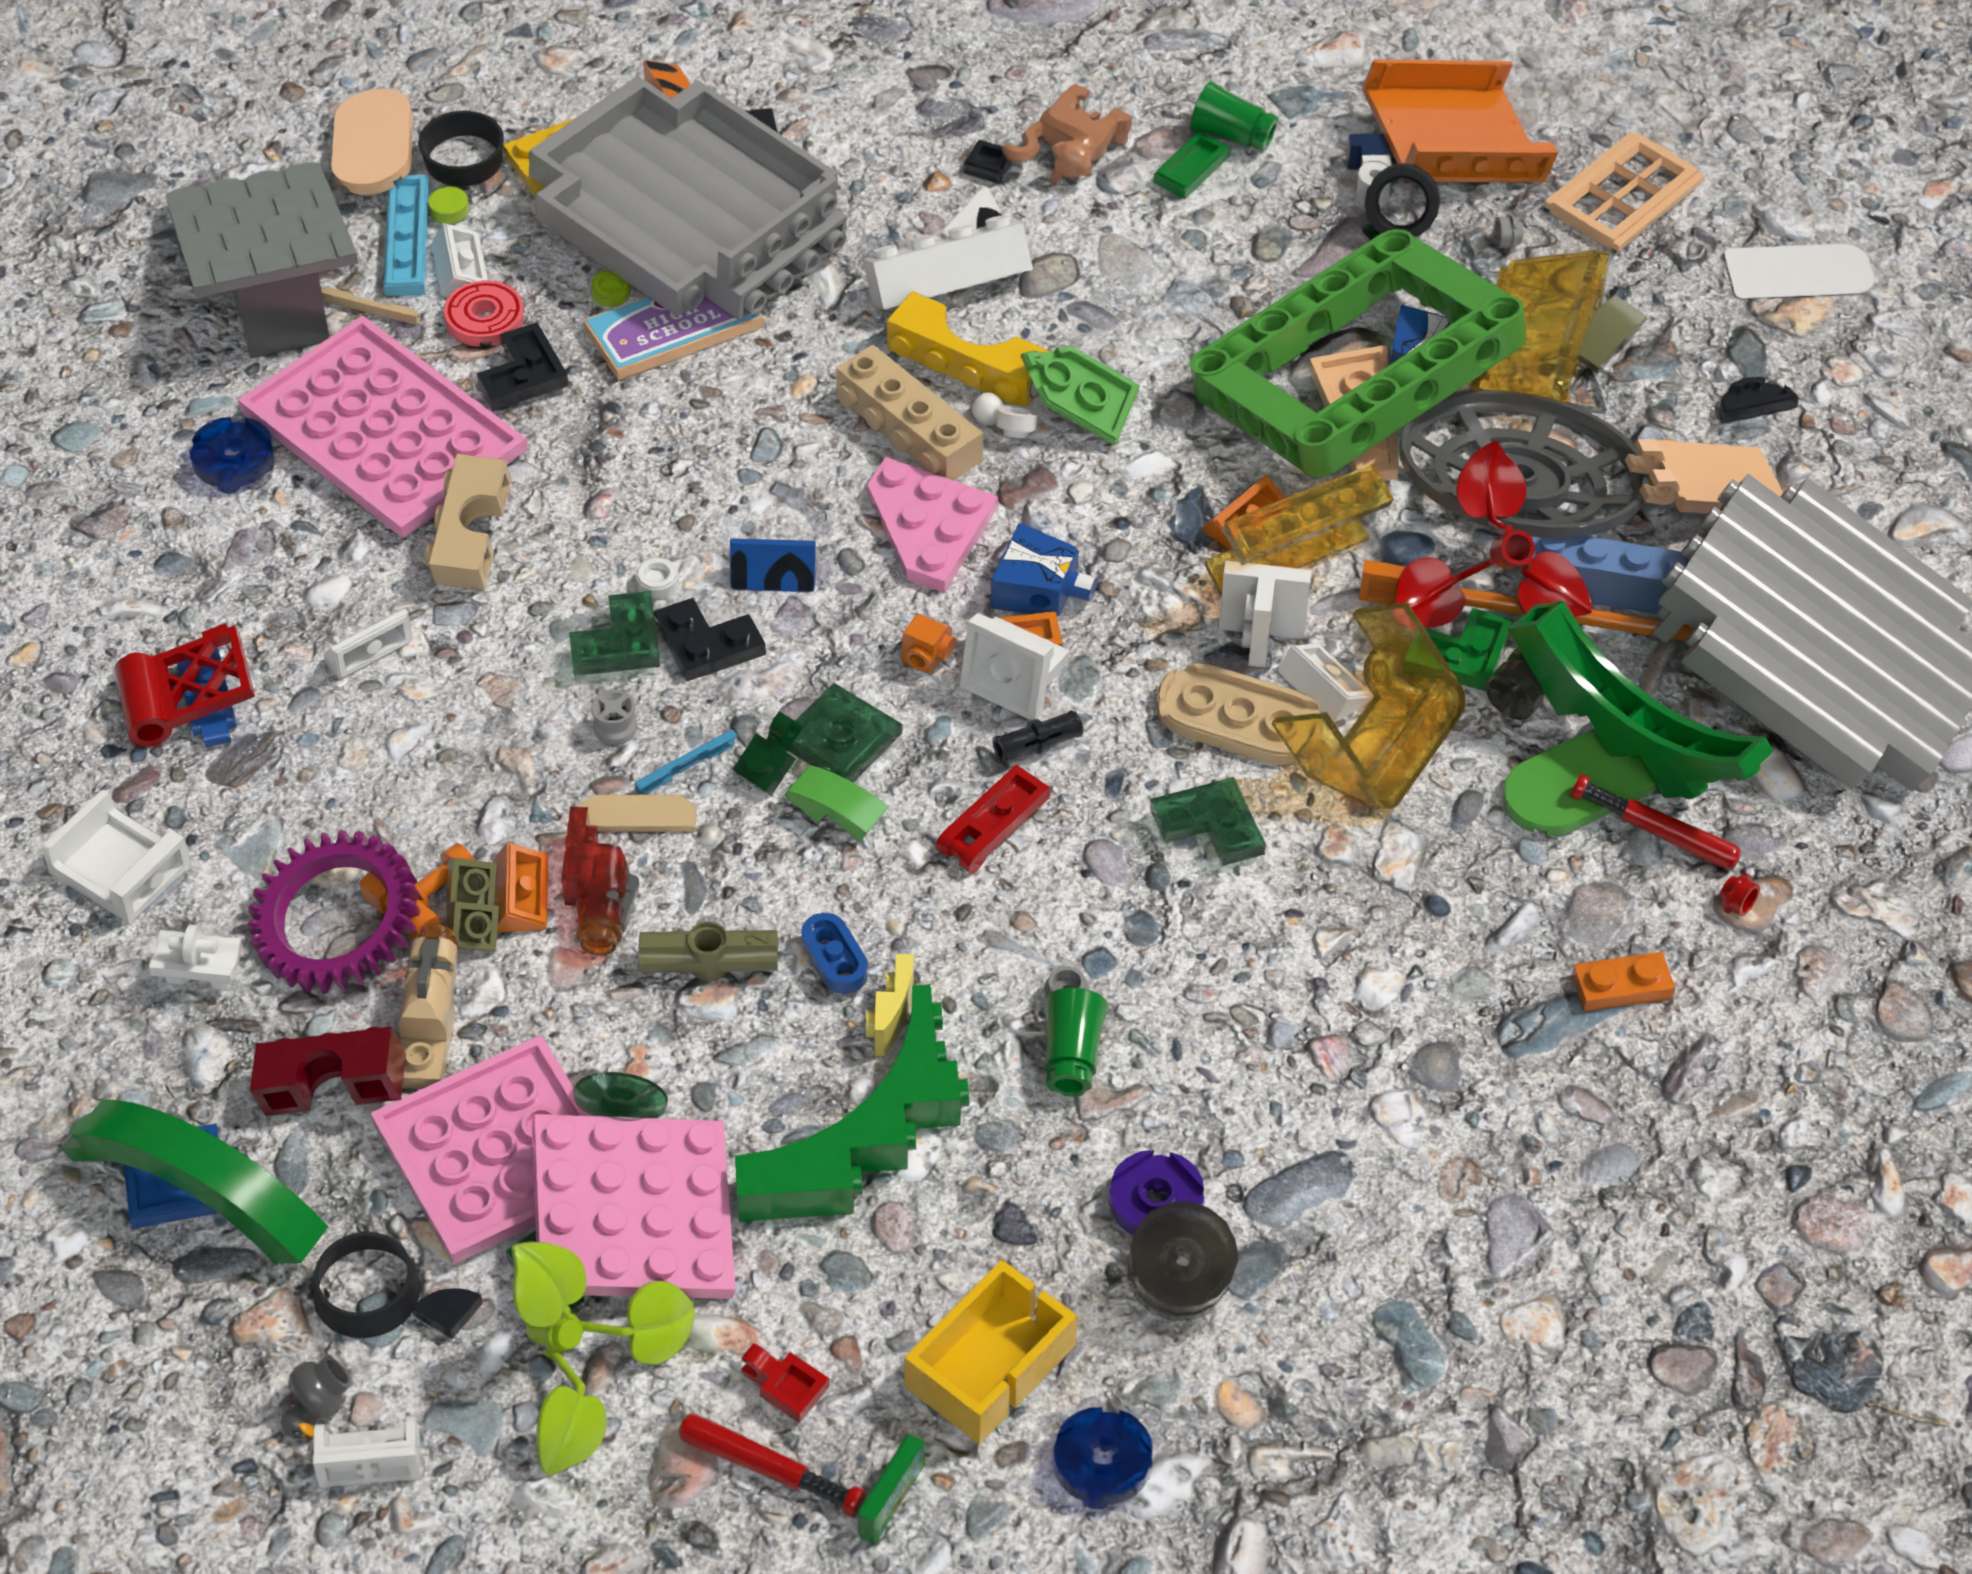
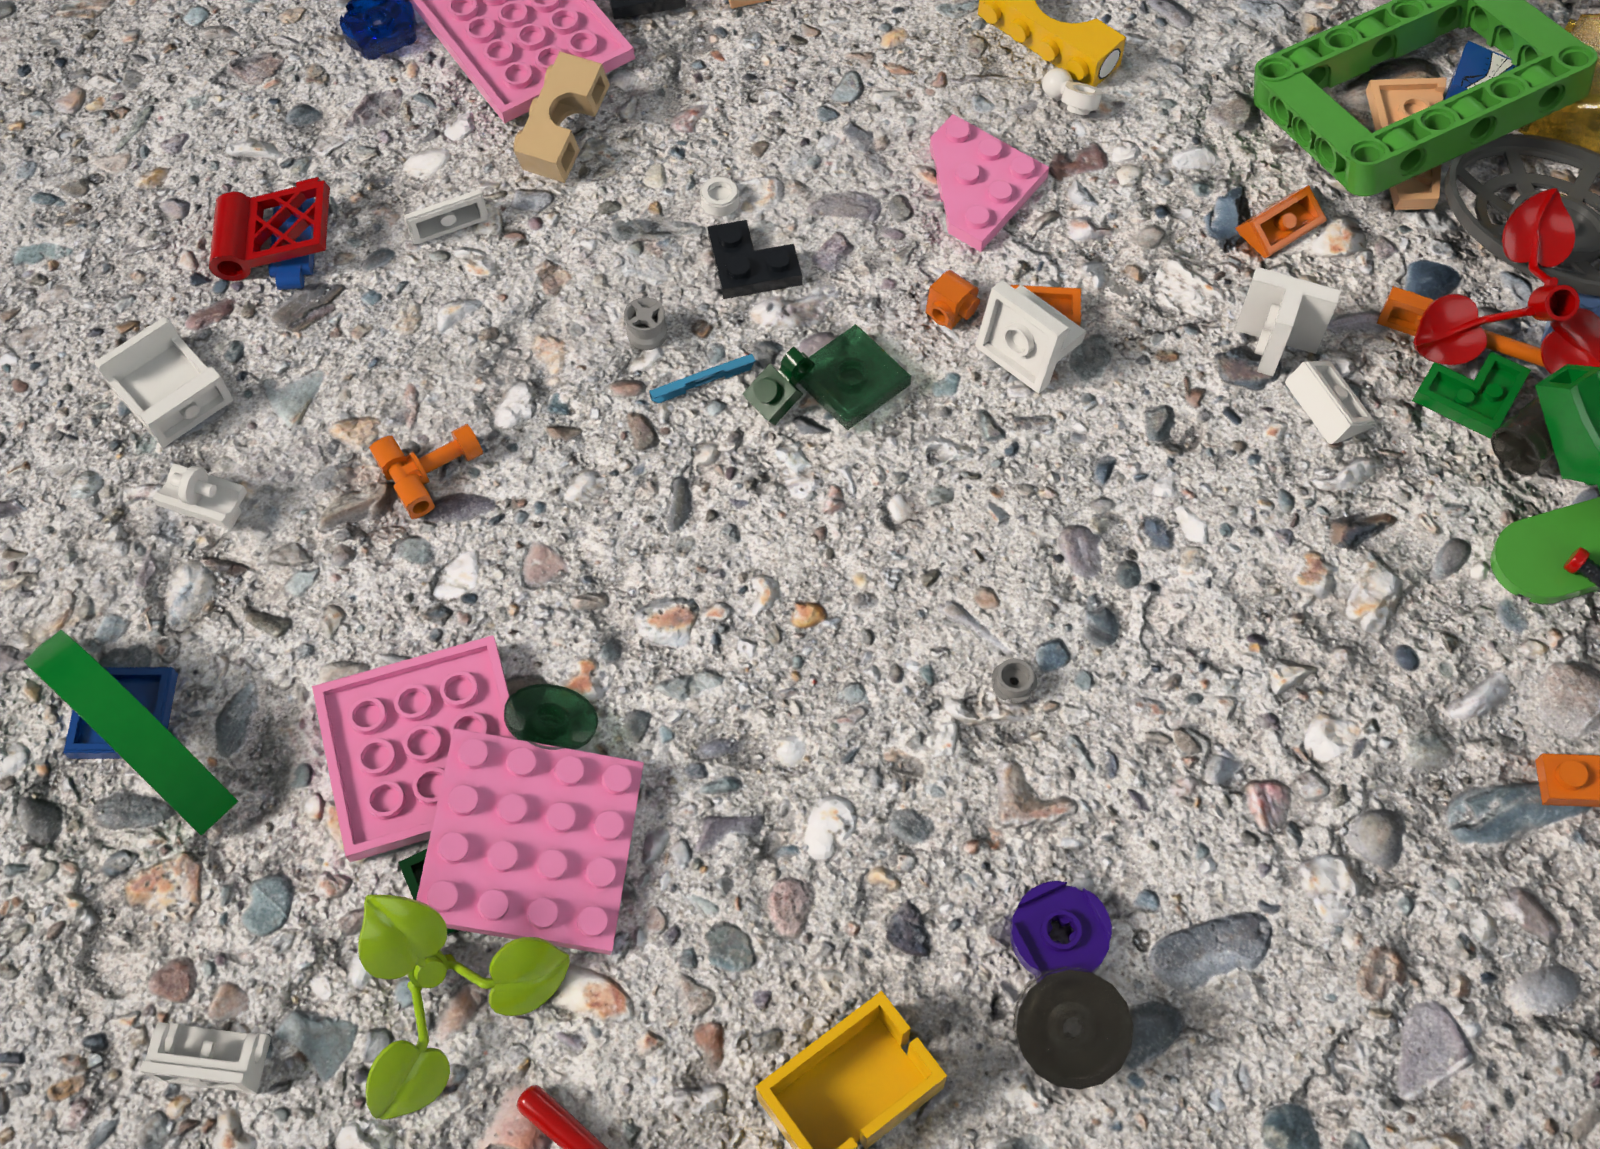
camera: 15 degrees right, 10 degrees up
(269, 917) = (278, 490): magenta piece -> none
(292, 1069) = (250, 628): dark red arch -> none
(320, 1395) = (175, 983): dark grey animal -> none
(373, 1322) = (289, 897): black tyre -> none
(428, 1005) = (395, 588): tan plate -> none
(448, 1309) = (331, 911): black tile -> none
(471, 903) = (466, 489): olive slope -> none
(521, 889) = (518, 479): orange slope -> none
(598, 884) = (587, 487): clear red plate -> none
(626, 645) = (670, 257): clear green plate -> none
(641, 813) = (644, 421): tan piece -> none
(728, 951) = (700, 580): olive piece -> none
(772, 565) = (826, 200): blue slope -> none
(788, 1384) = (640, 1072): red plate -> none
(826, 793) = (839, 446): bright green slope -> none
(826, 1168) = (725, 836): green arch -> none
(837, 956) = (794, 603): blue plate -> none
(891, 1006) = (837, 671): light yellow slope -> none
(909, 414) = (983, 77): tan brick -> none
(993, 818) = (978, 487): red plate -> none
(1037, 736) = (1038, 410): black pin -> none
(1038, 574) = (1072, 249): blue torso -> none
(1072, 1038) = (1008, 741): green plant -> none
(1082, 389) = (1148, 78): bright green tile -> none
(1215, 810) = (1199, 517): clear green plate -> none
(1230, 711) = (1241, 421): tan tile -> none
(1305, 524) = (1340, 241): clear yellow fence -> none
(1401, 727) = (1399, 462): clear yellow windscreen -> none

